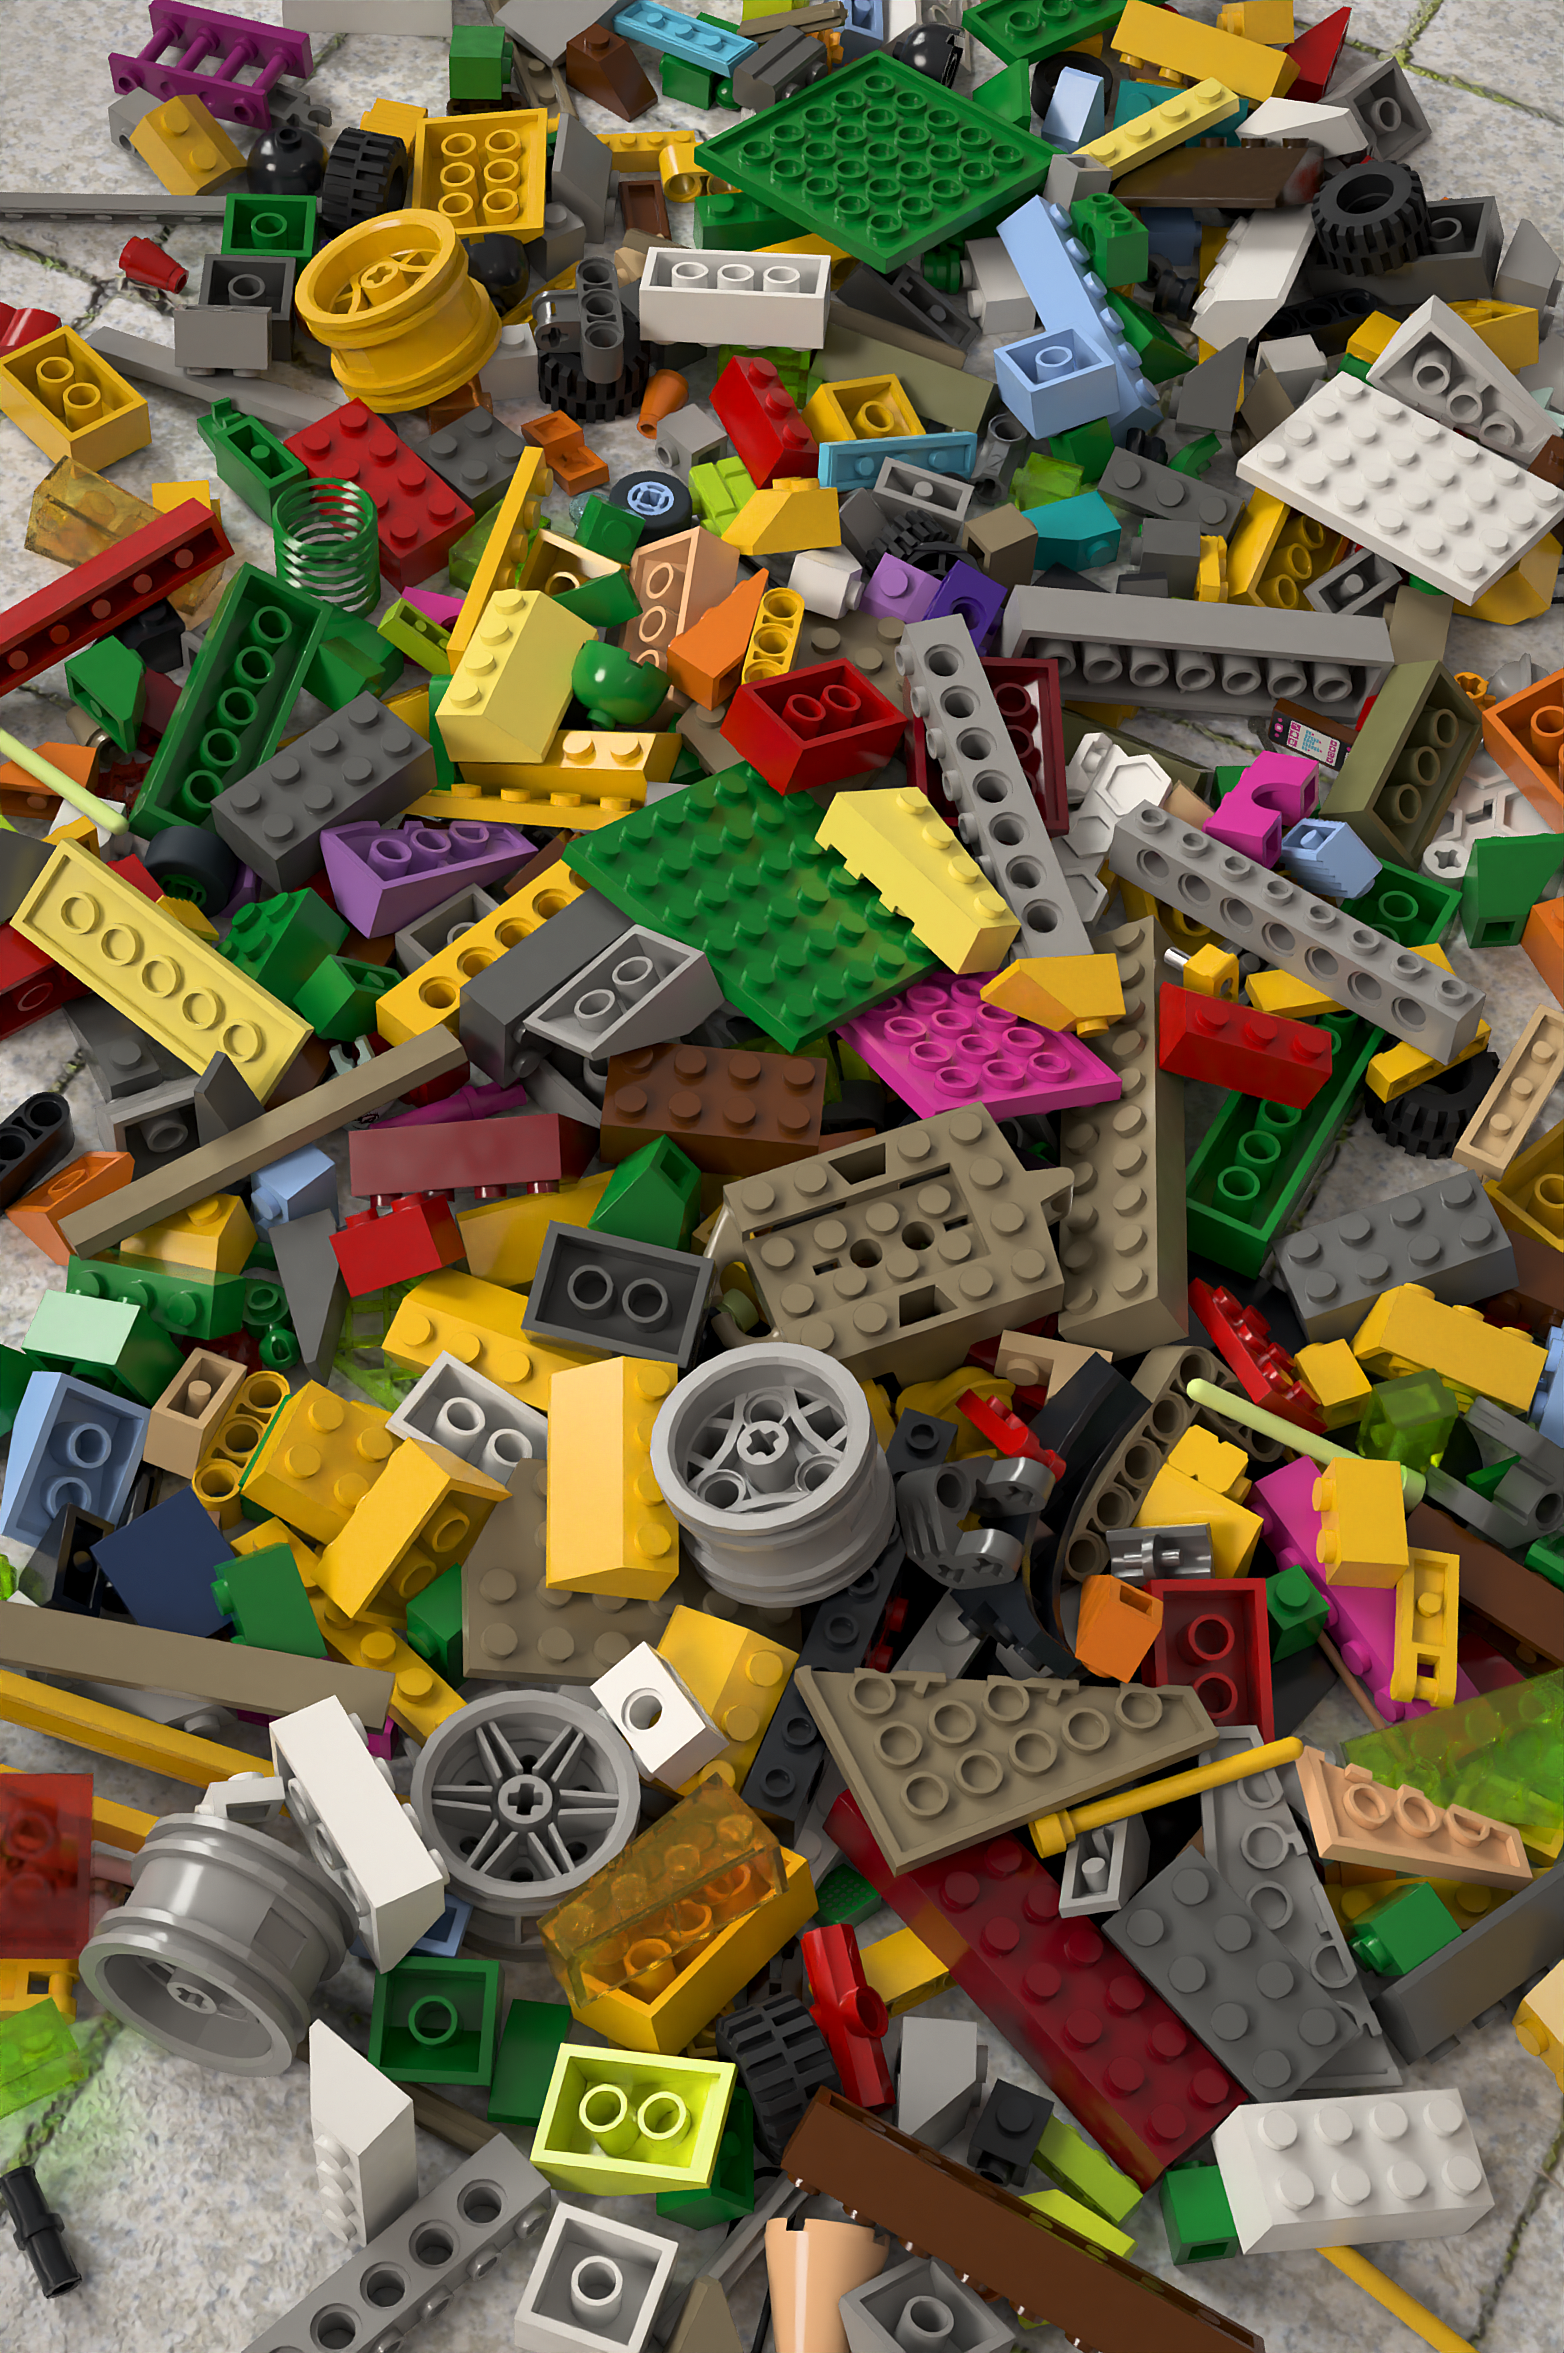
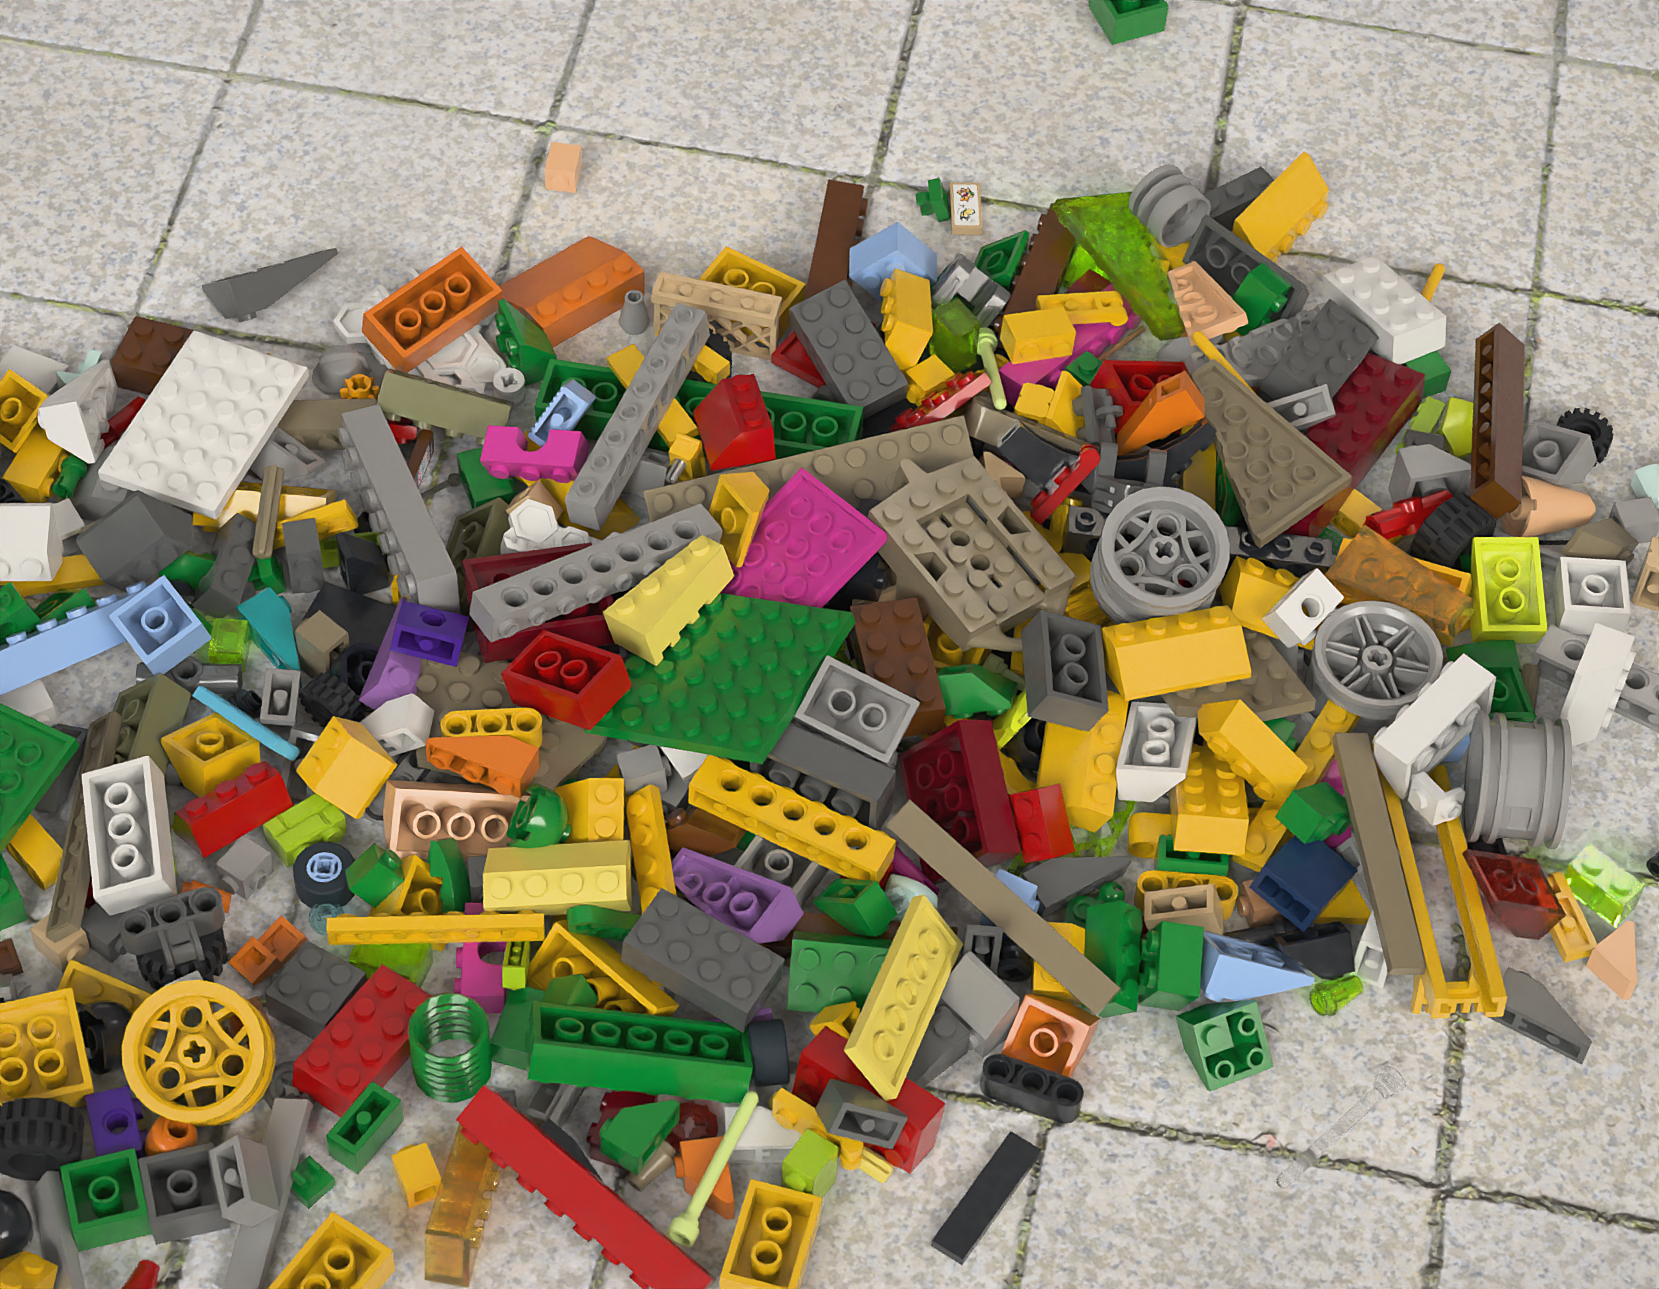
camera: 105 degrees left, 0 degrees up
(1239, 524) = (268, 512): none -> dark tan axle

